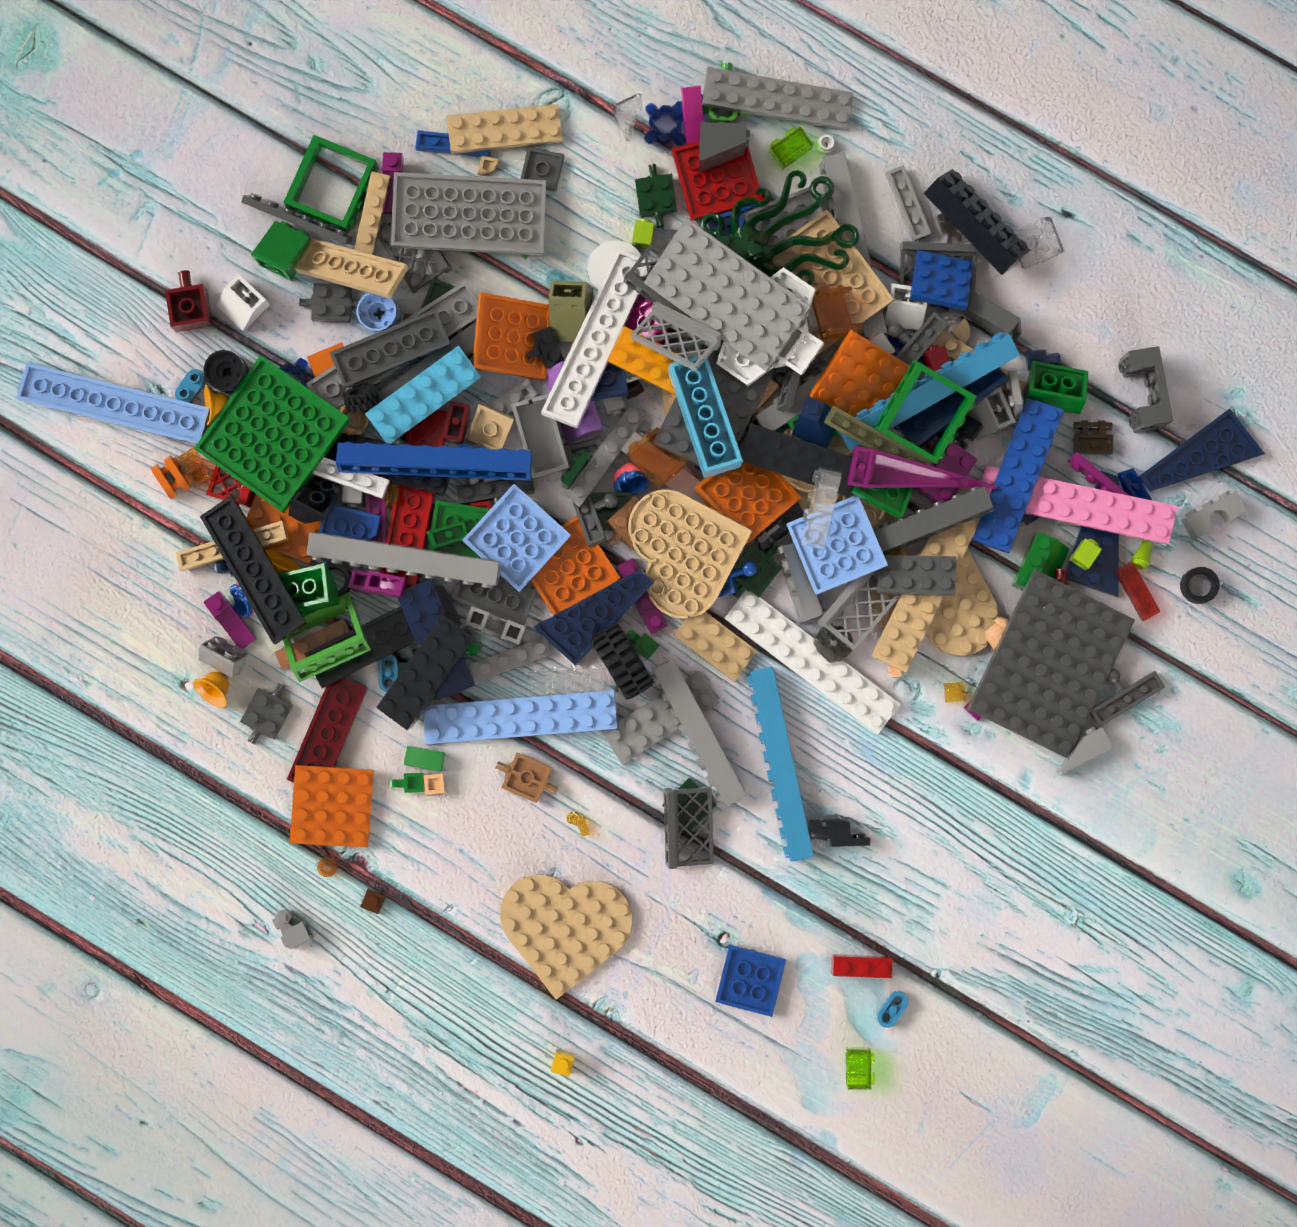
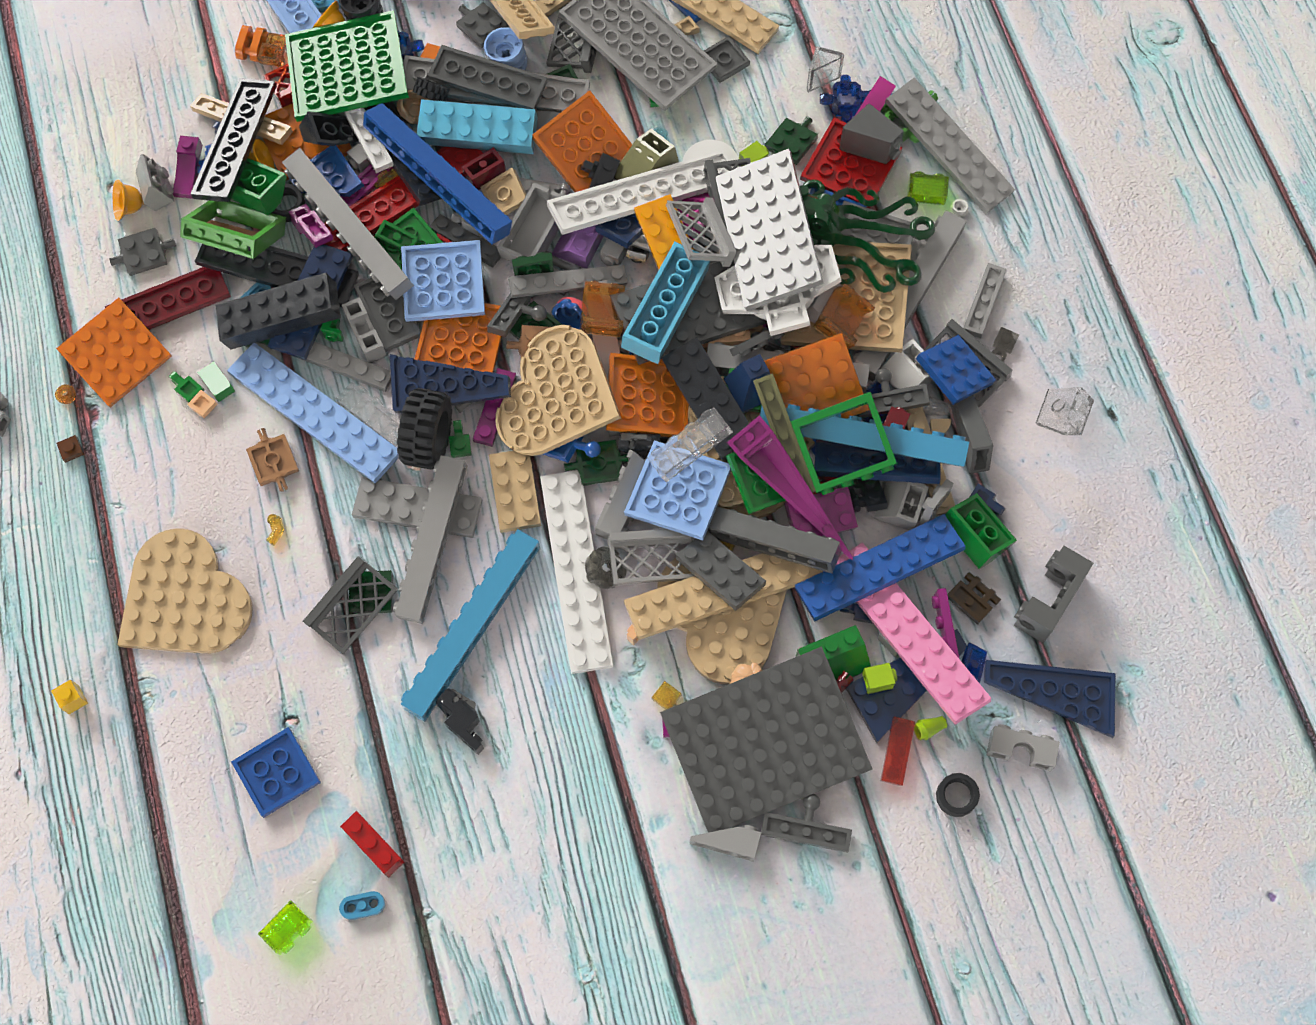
camera: 45 degrees right, 15 degrees down
(977, 221) = (1027, 352): black brick -> none

